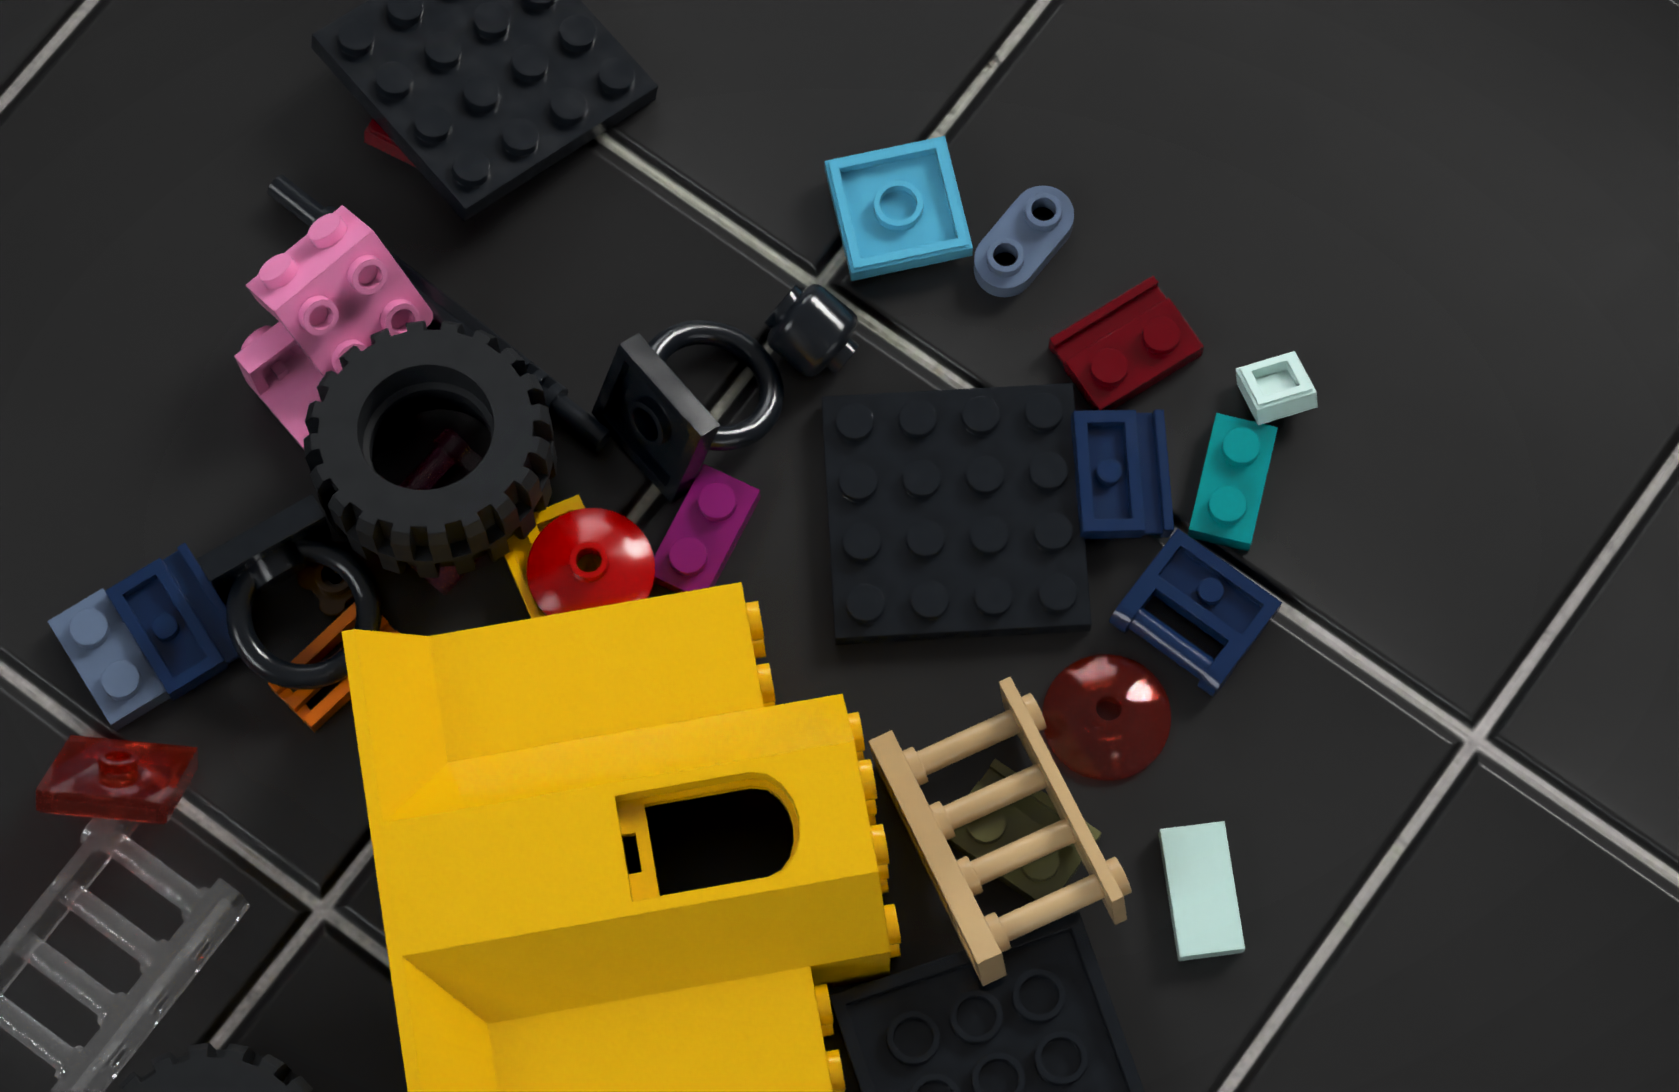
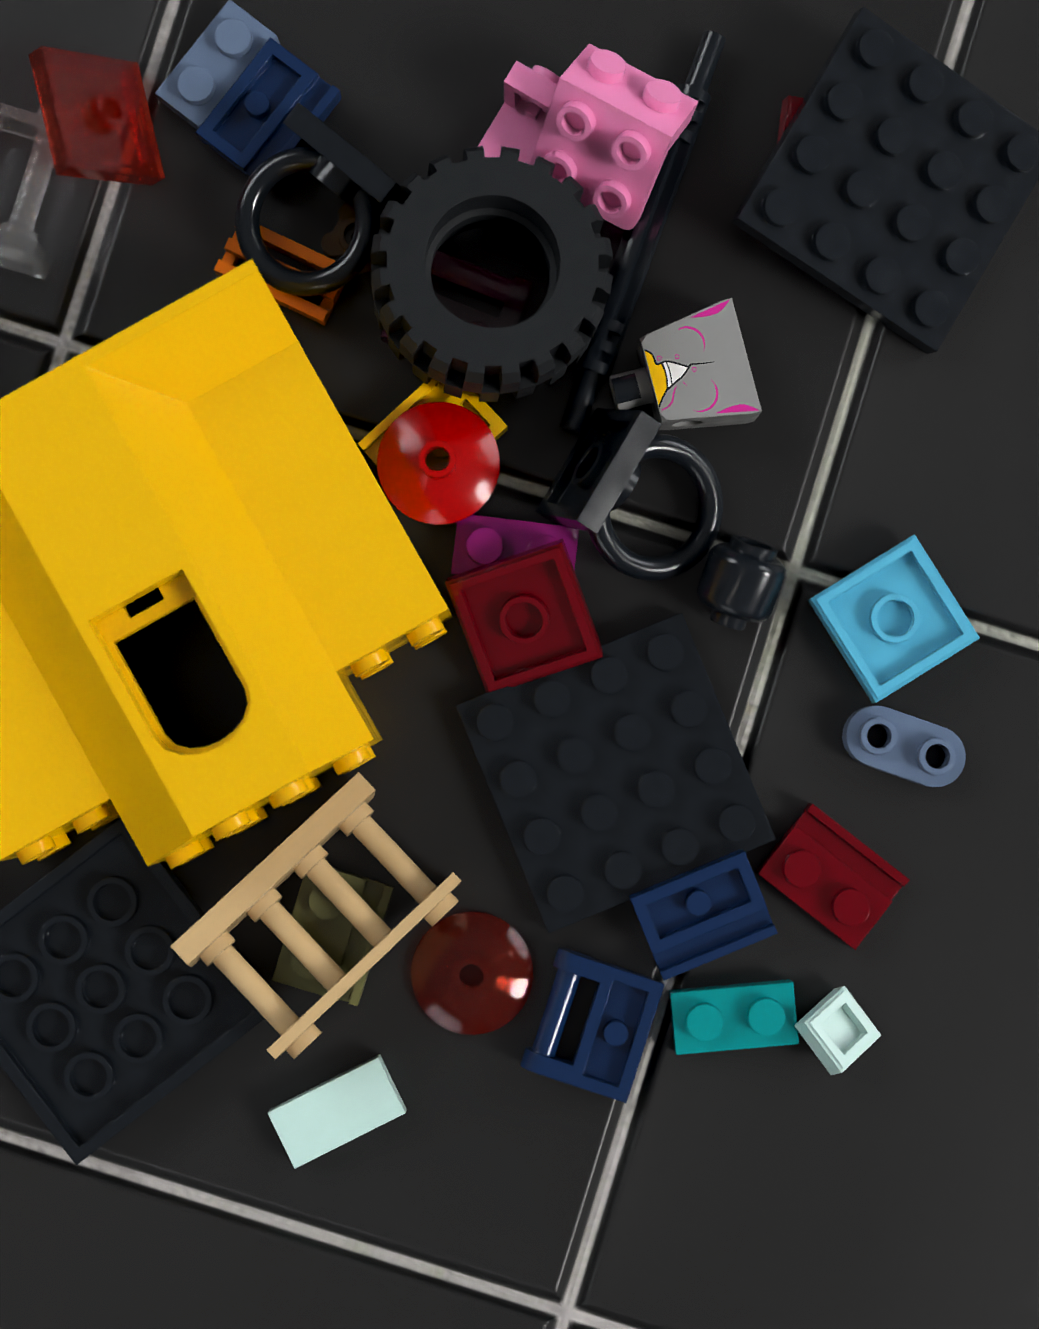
camera: 70 degrees right, 15 degrees up
(592, 305) = (692, 373): none -> light grey torso
(774, 537) = (524, 616): none -> dark red plate

